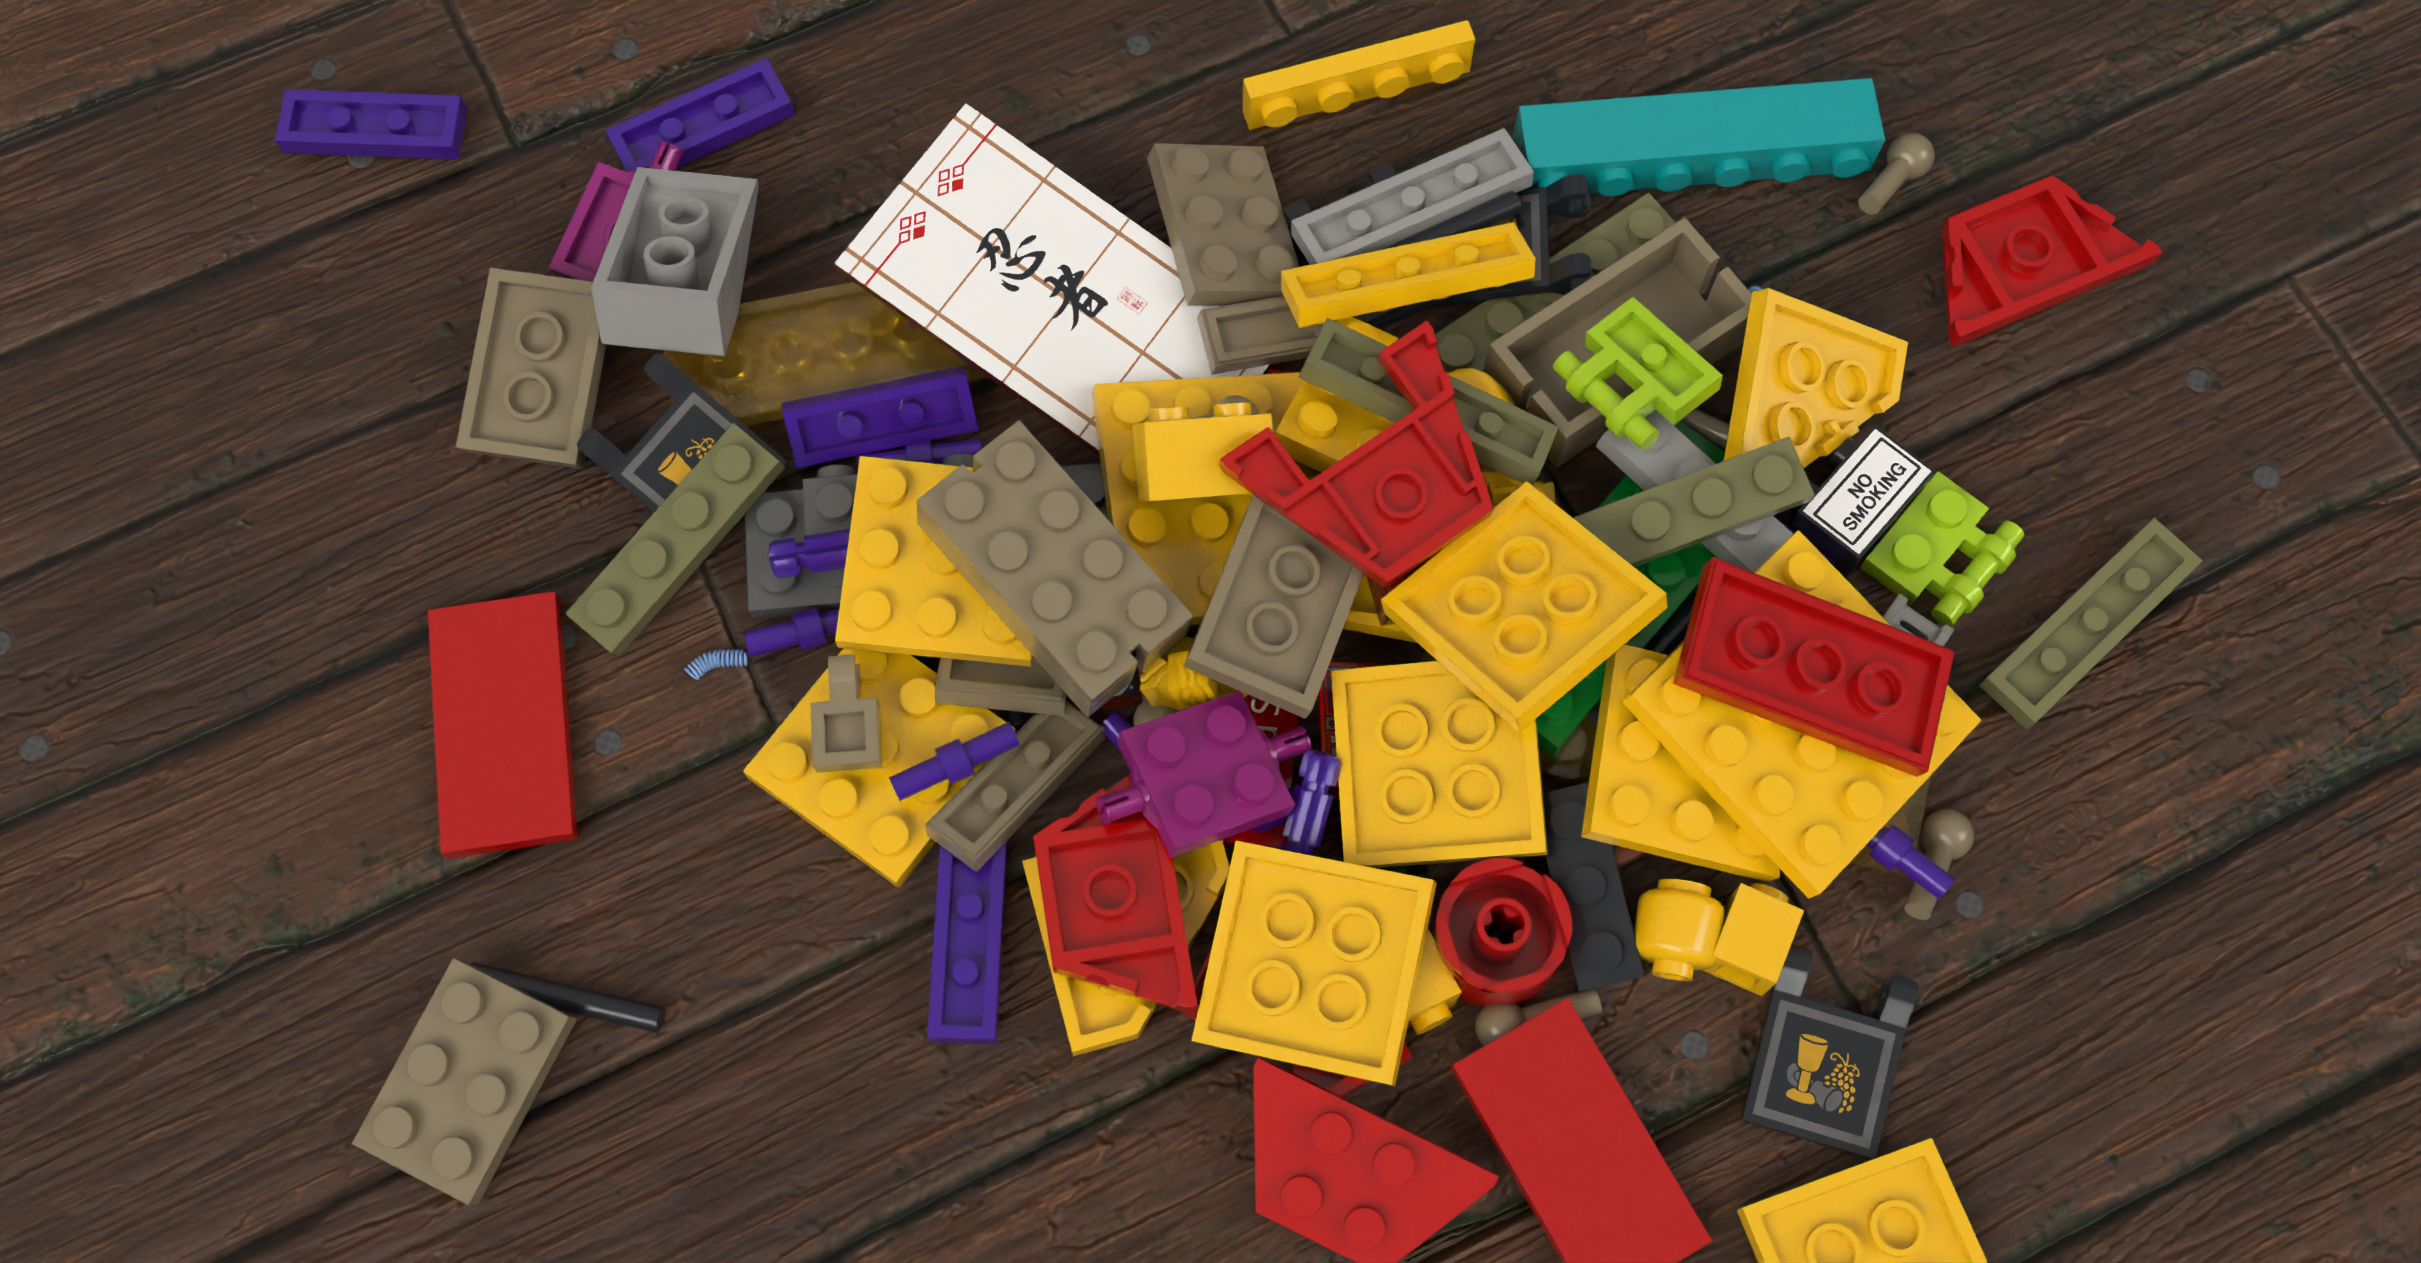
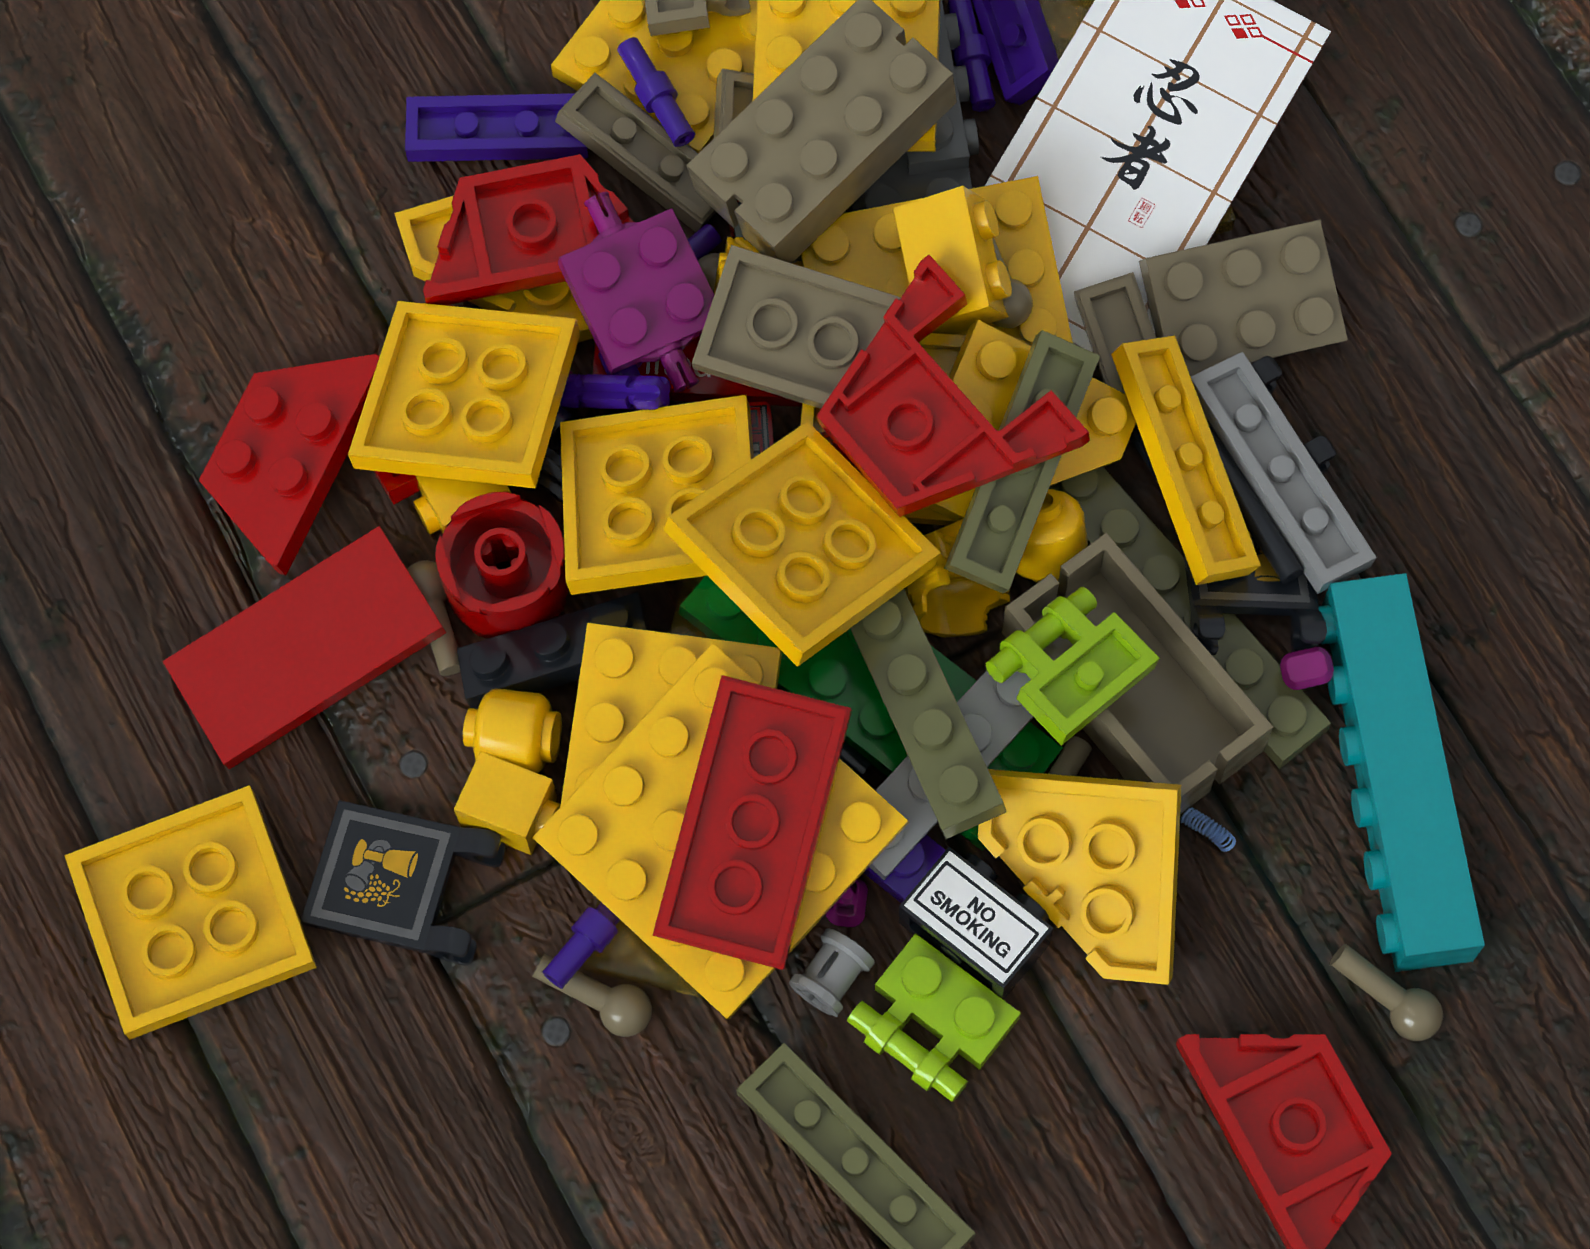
camera: 90 degrees right, 0 degrees up
(1358, 75) = (1447, 445): yellow plate -> none
(1607, 199) = (1306, 668): none -> magenta rock

